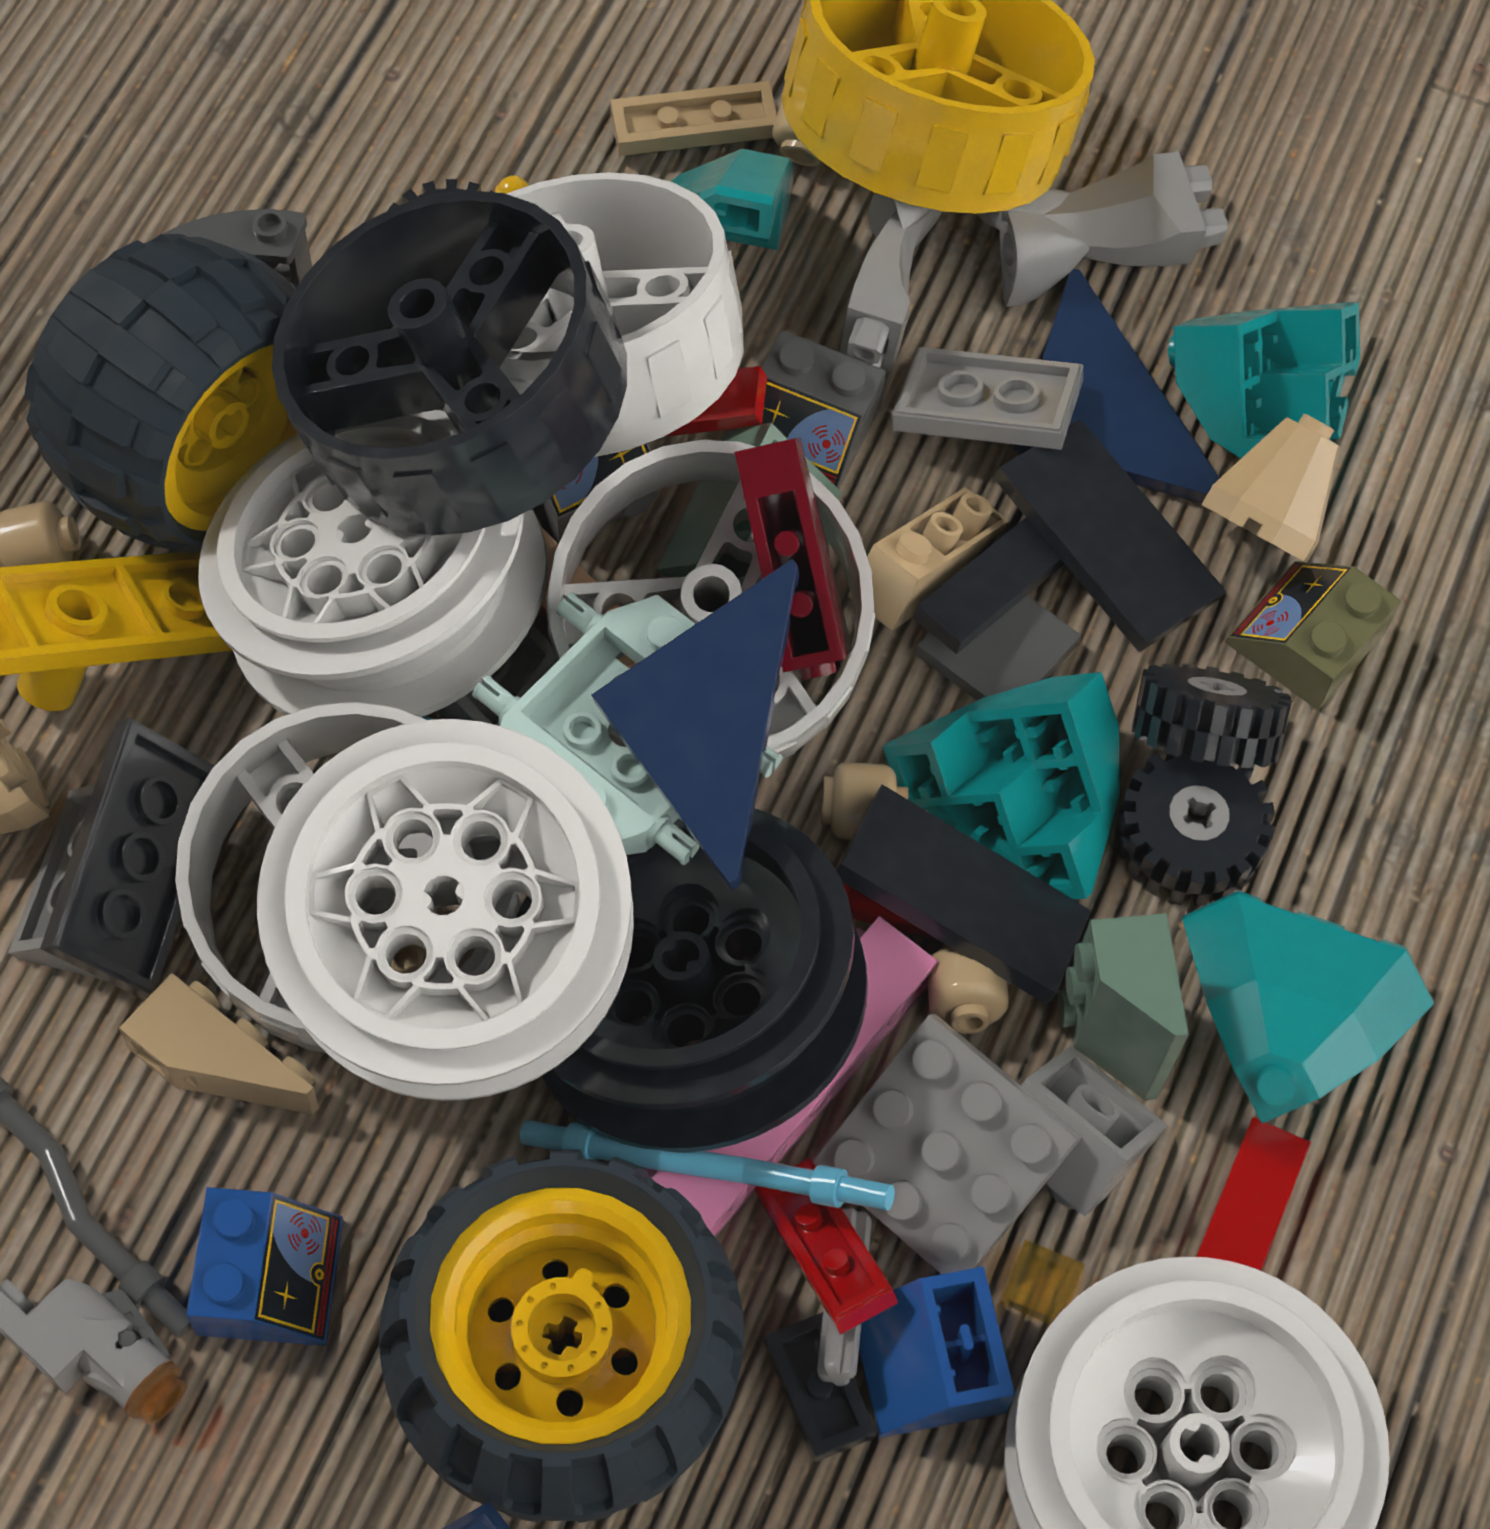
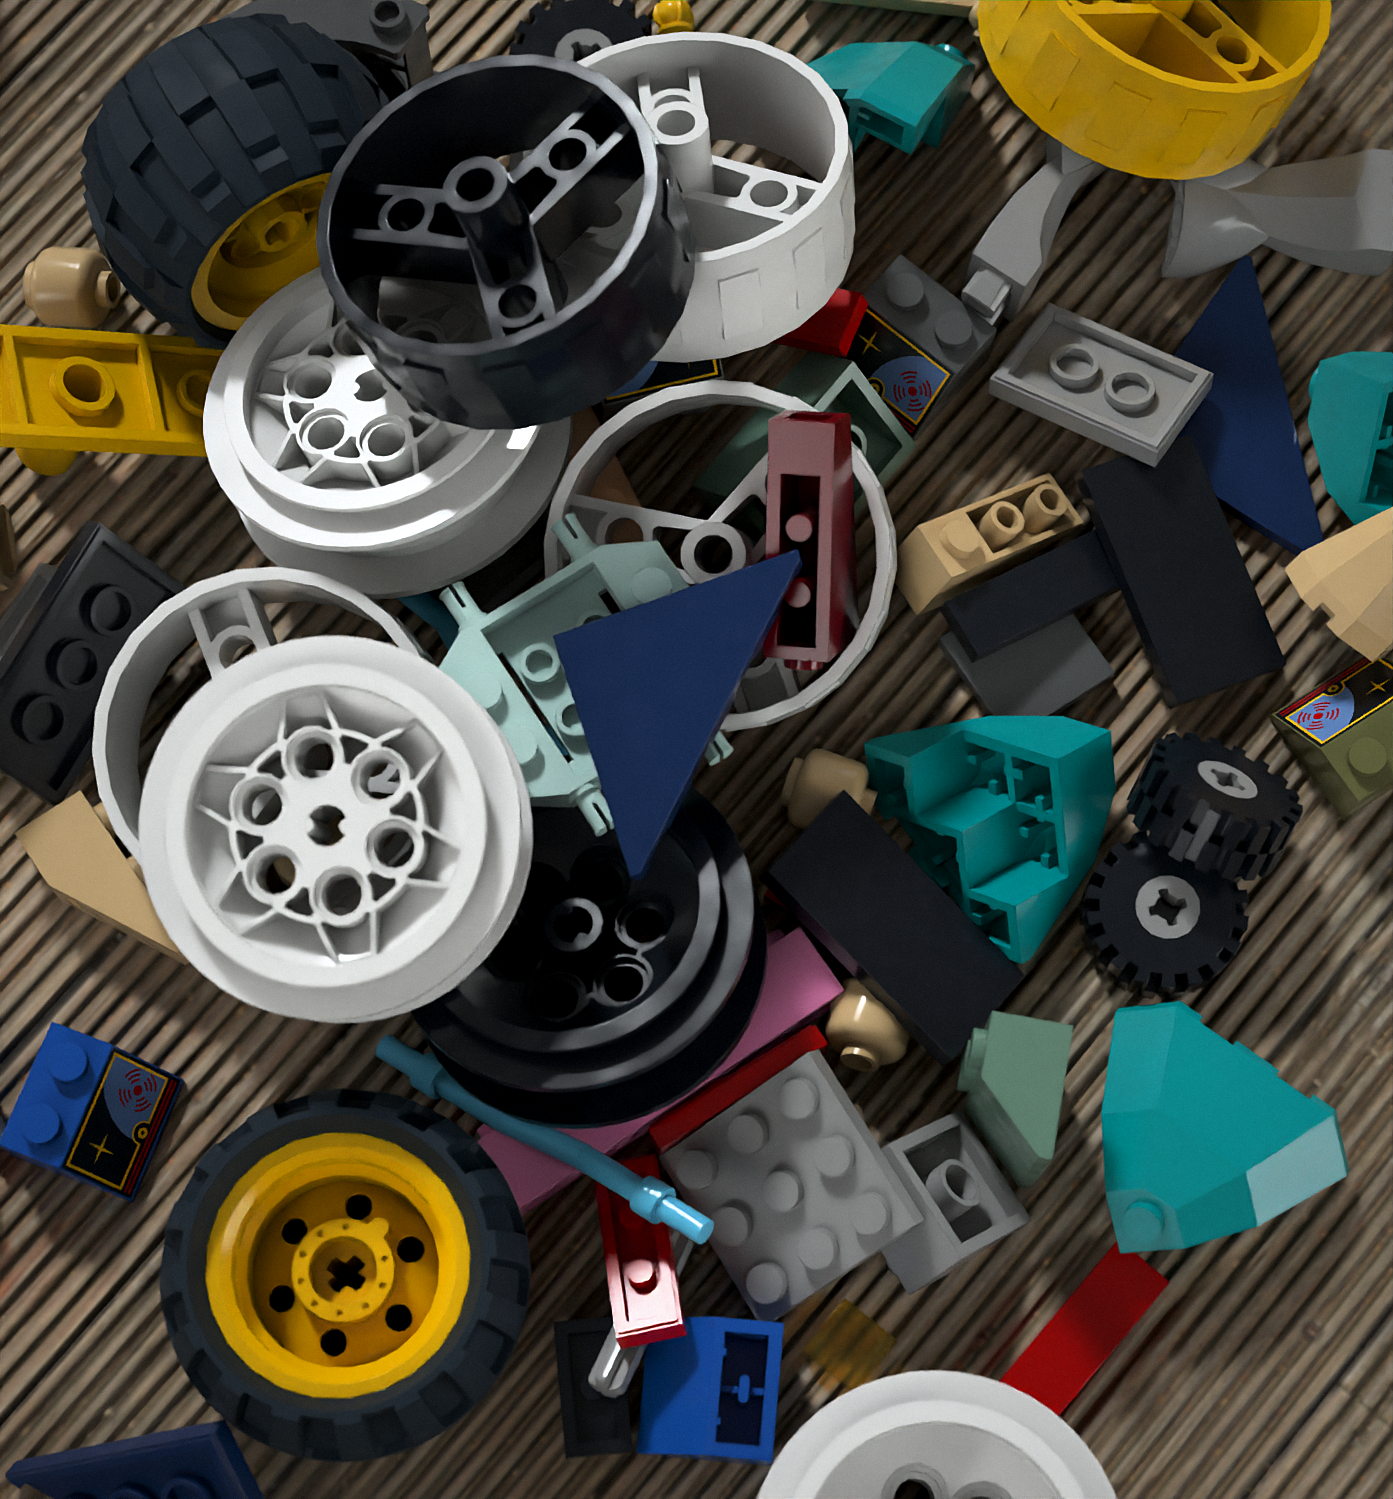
camera: 20 degrees right, 10 degrees up
(842, 1101) = (713, 1101): none -> red tile

